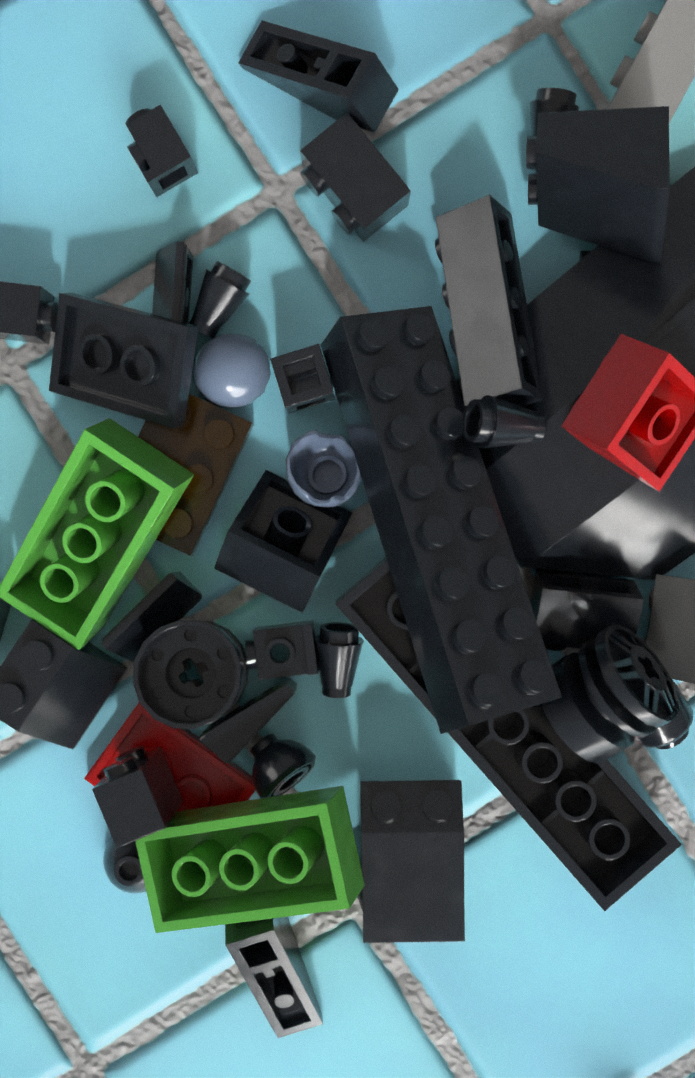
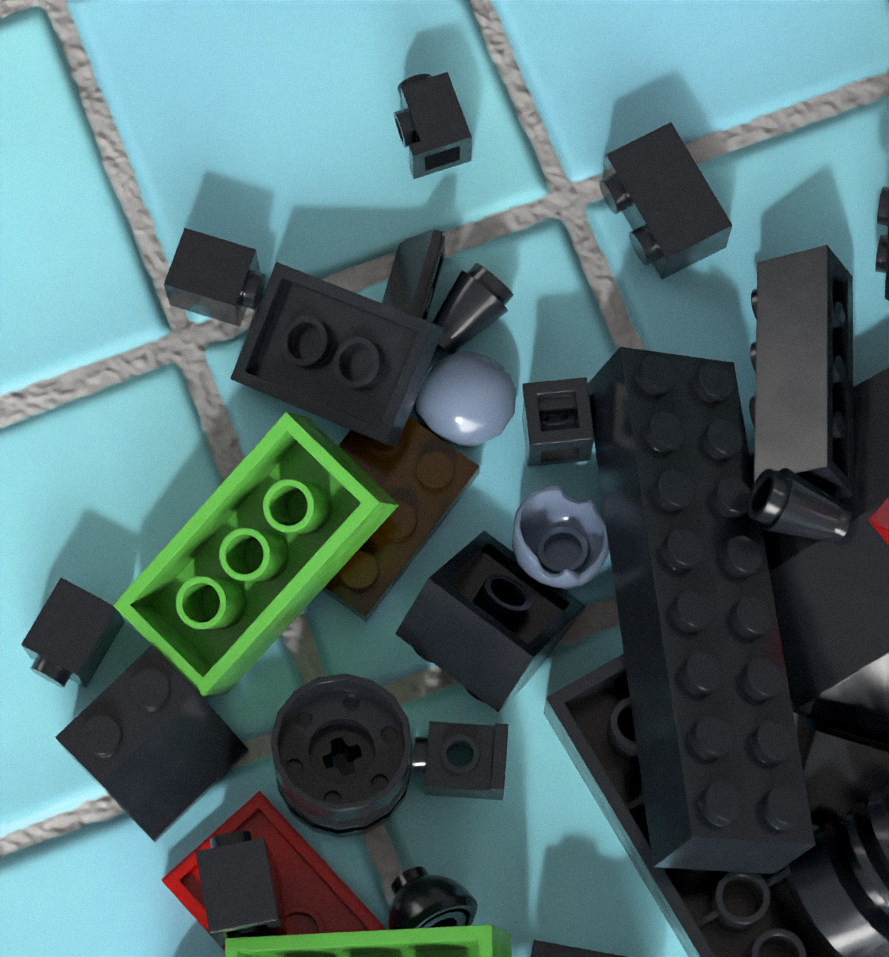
camera: 15 degrees right, 15 degrees down
(161, 606) = (266, 694): black slope -> none
(236, 729) = (387, 847): black slope -> none
(321, 73) = (647, 75): black slope -> none
(338, 657) = (532, 785): black cone -> none

